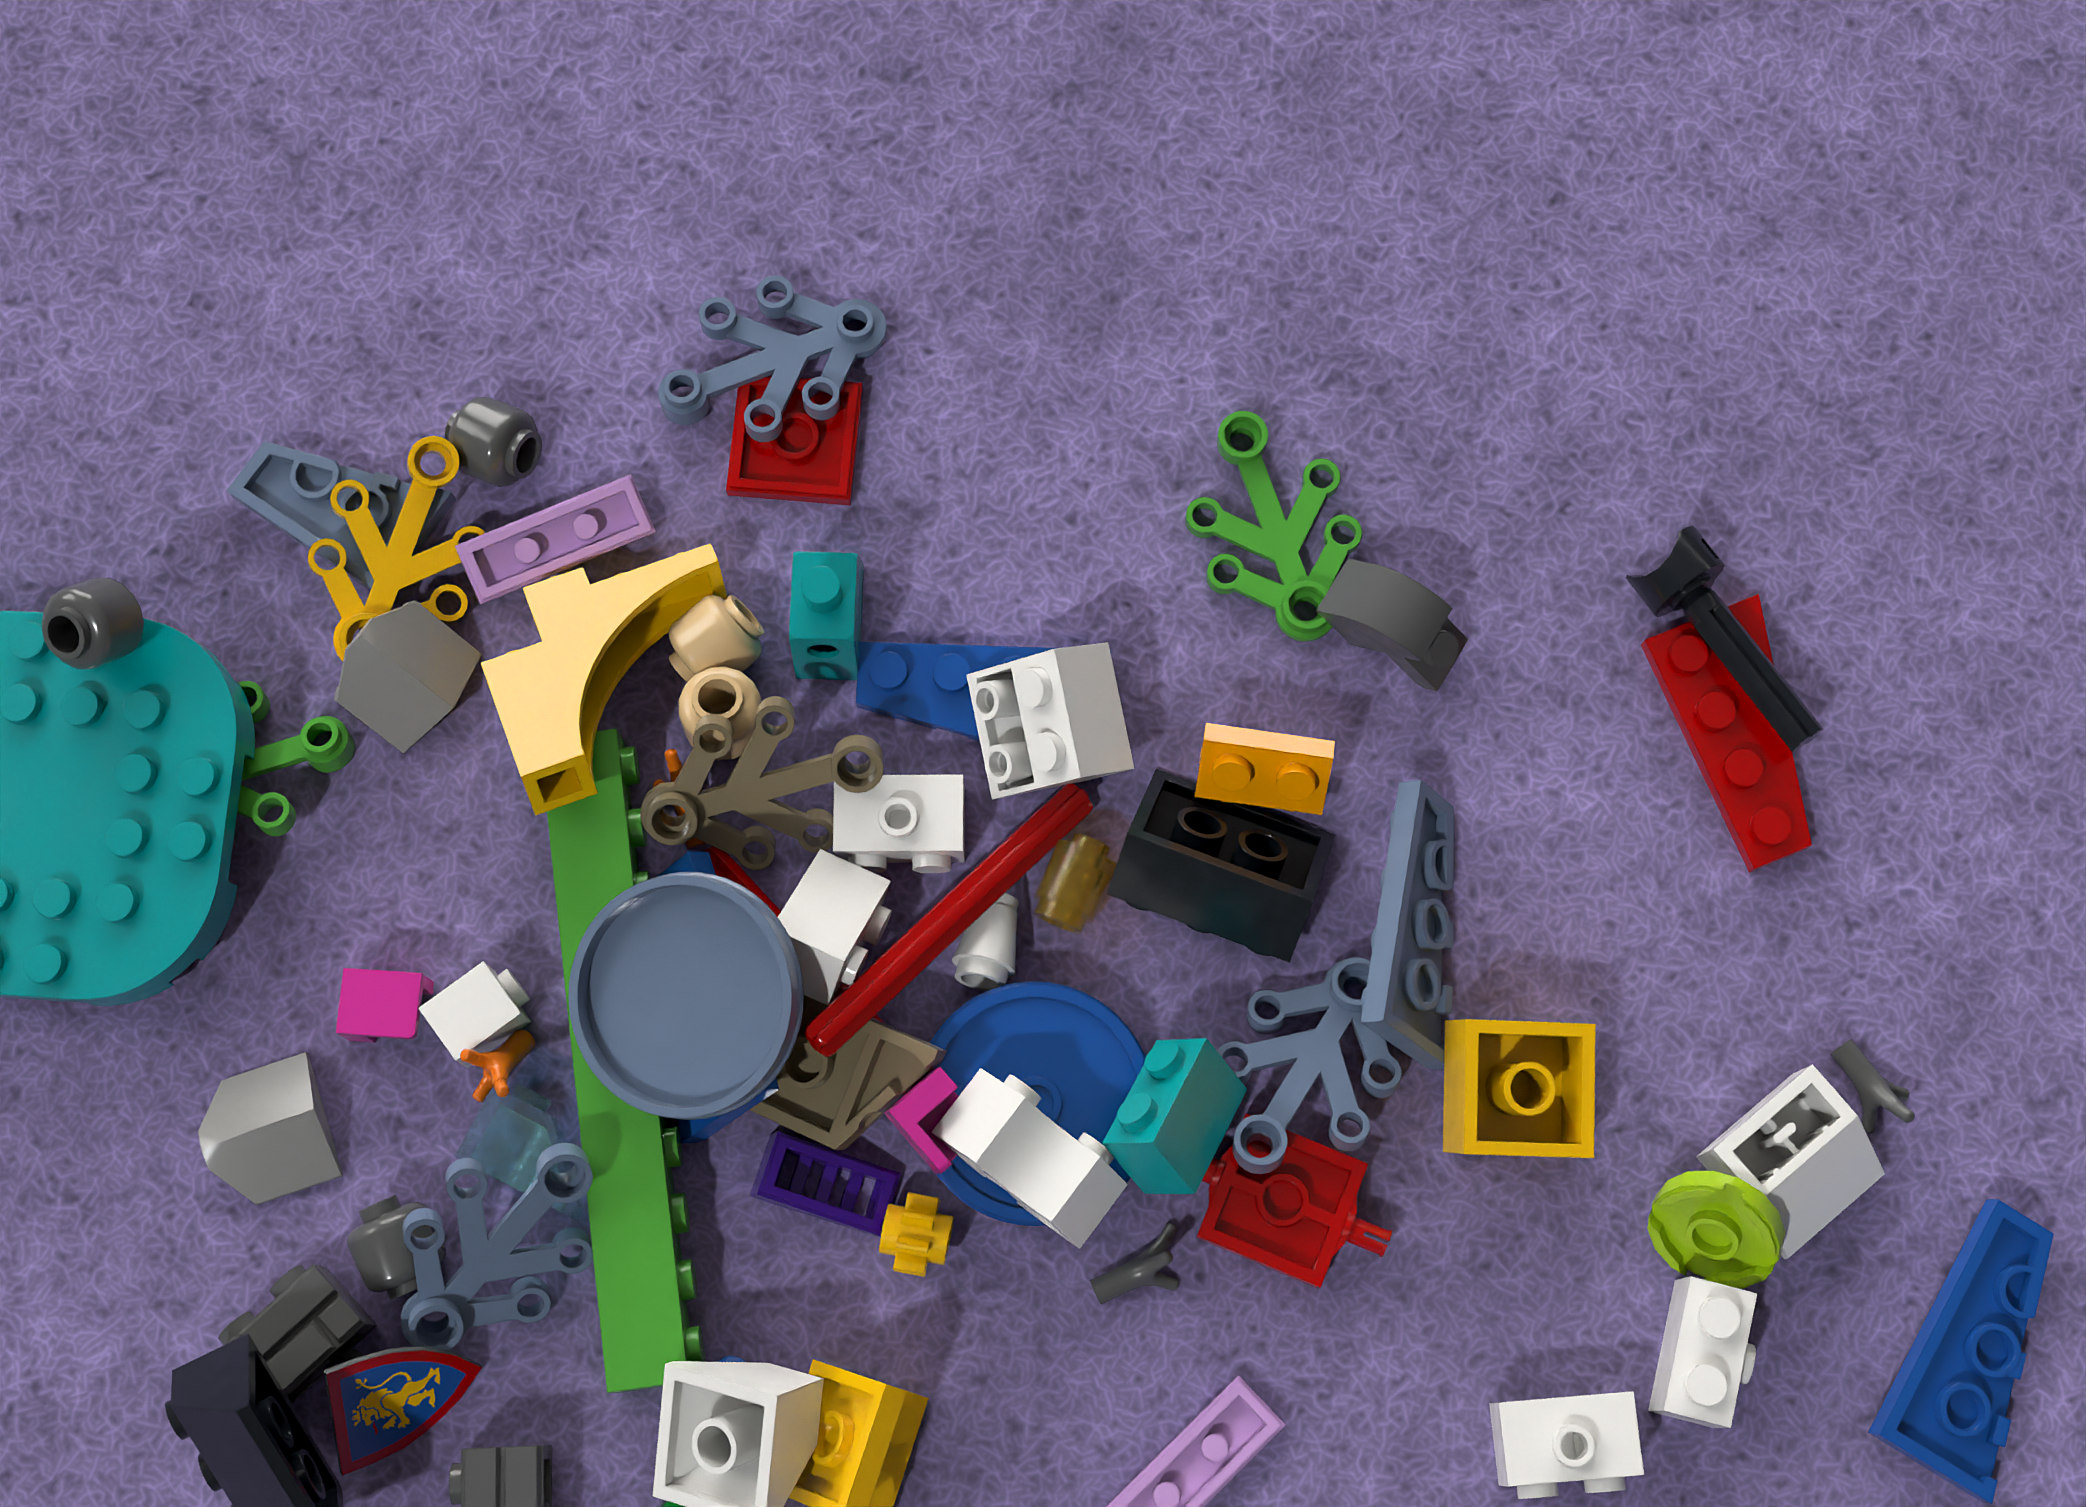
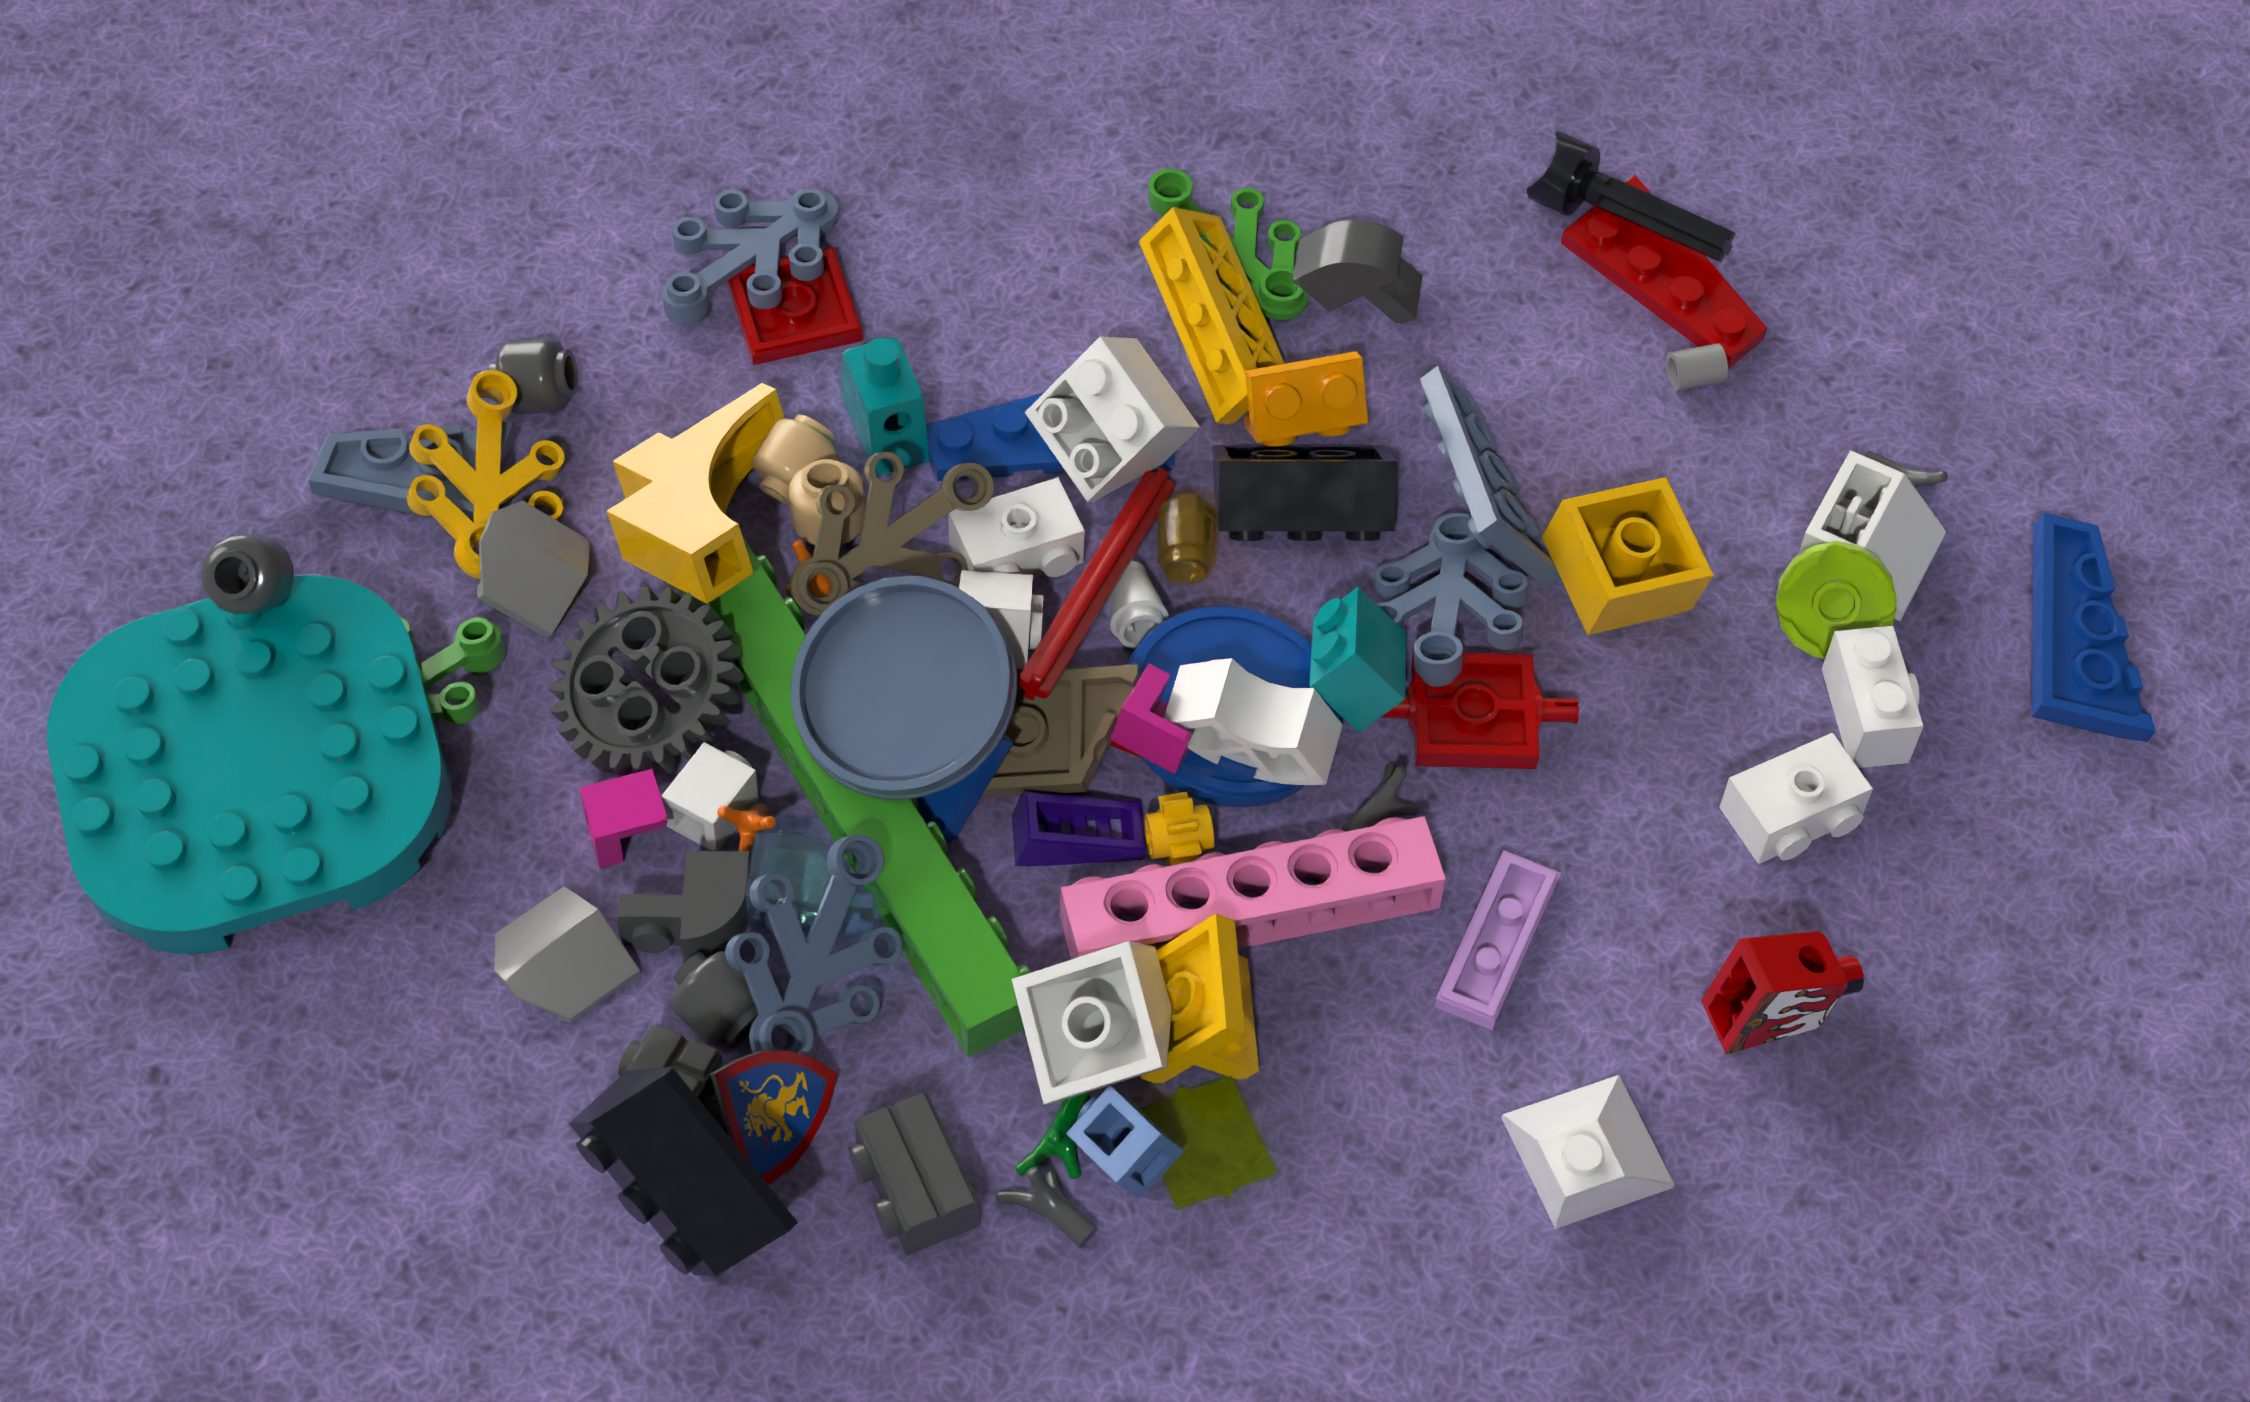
camera: 25 degrees left, 20 degrees down
(418, 1148) = (701, 918): none -> dark grey brick
(459, 862) = (685, 640): none -> dark grey gear
(555, 539) = (586, 451): lavender tile -> none
(785, 1327) = (1287, 908): none -> bright pink brick
(1212, 615) = (1206, 310): none -> yellow fence
(1712, 865) = (1697, 367): none -> light grey hinge

